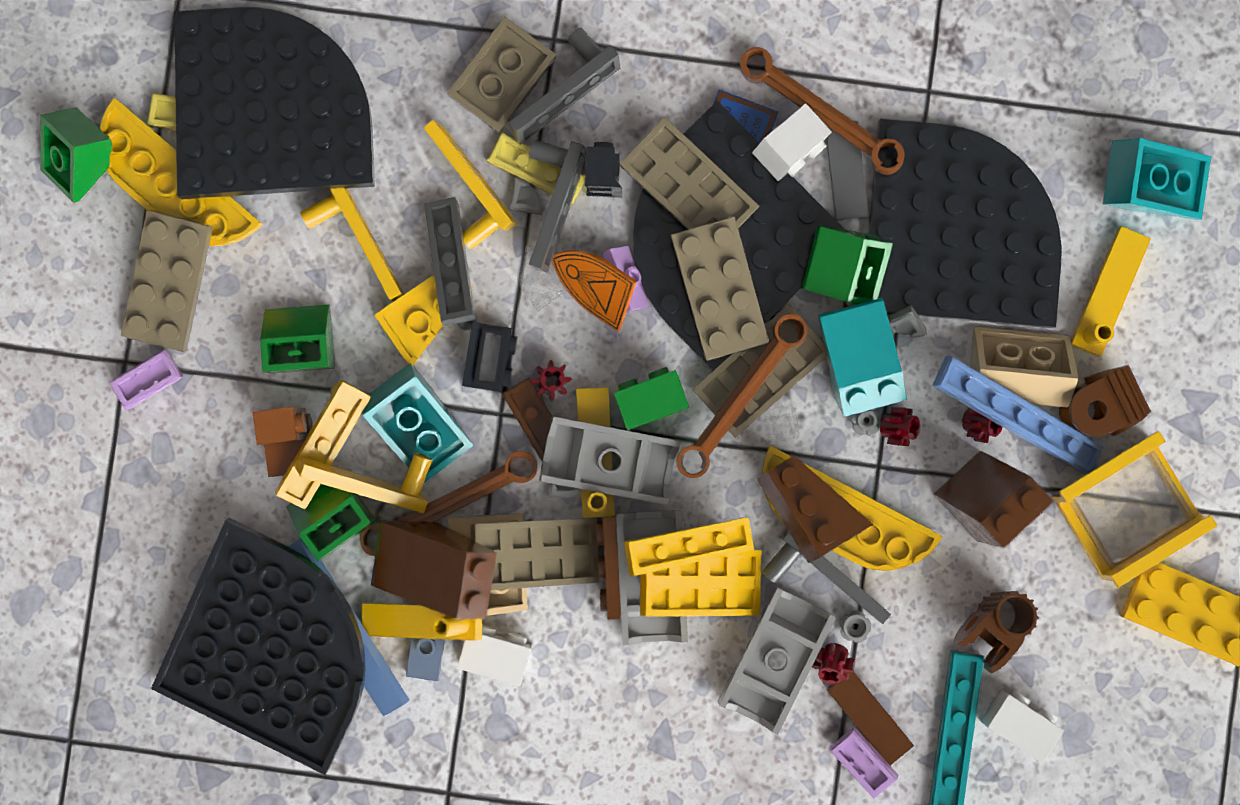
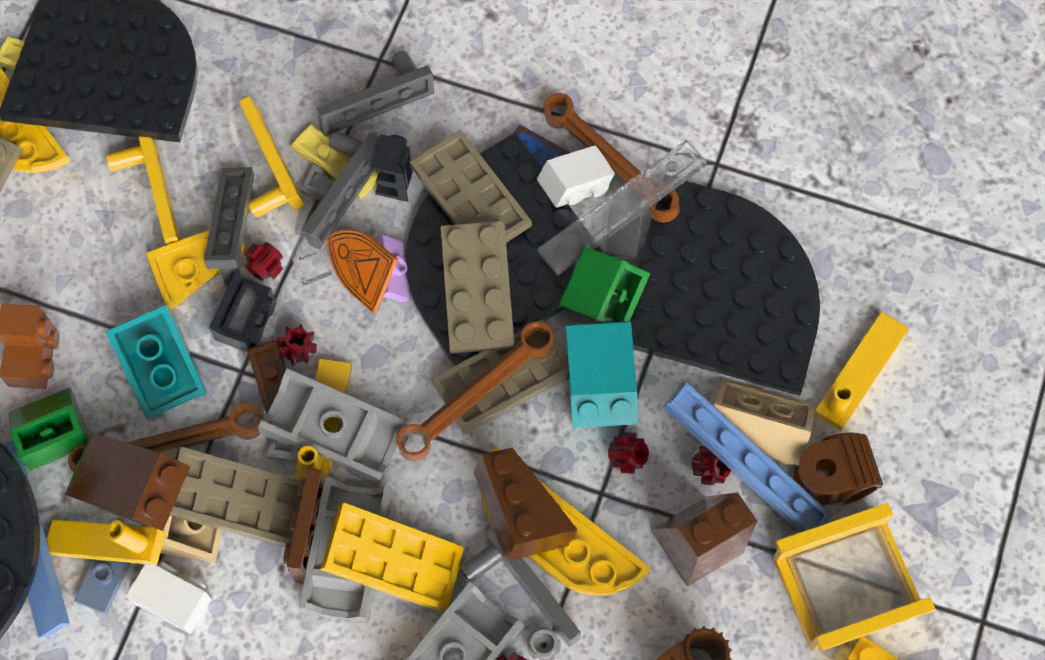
camera: 10 degrees right, 20 degrees down
(297, 339) = (67, 264): green slope -> none
(324, 440) = (59, 353): yellow piece -> none
(405, 496) = (128, 421): yellow piece -> none
(494, 298) = (263, 261): none -> dark red gear
(502, 75) = (324, 75): dark tan plate -> none
(651, 399) = (386, 375): green brick -> none
(688, 546) = (386, 511): yellow piece -> none
(849, 170) = (622, 206): none -> clear tile
(862, 428) = (590, 449): light grey plate -> none
(907, 323) = (654, 360): light grey tile -> none
(1156, 178) = (921, 275): teal slope -> none

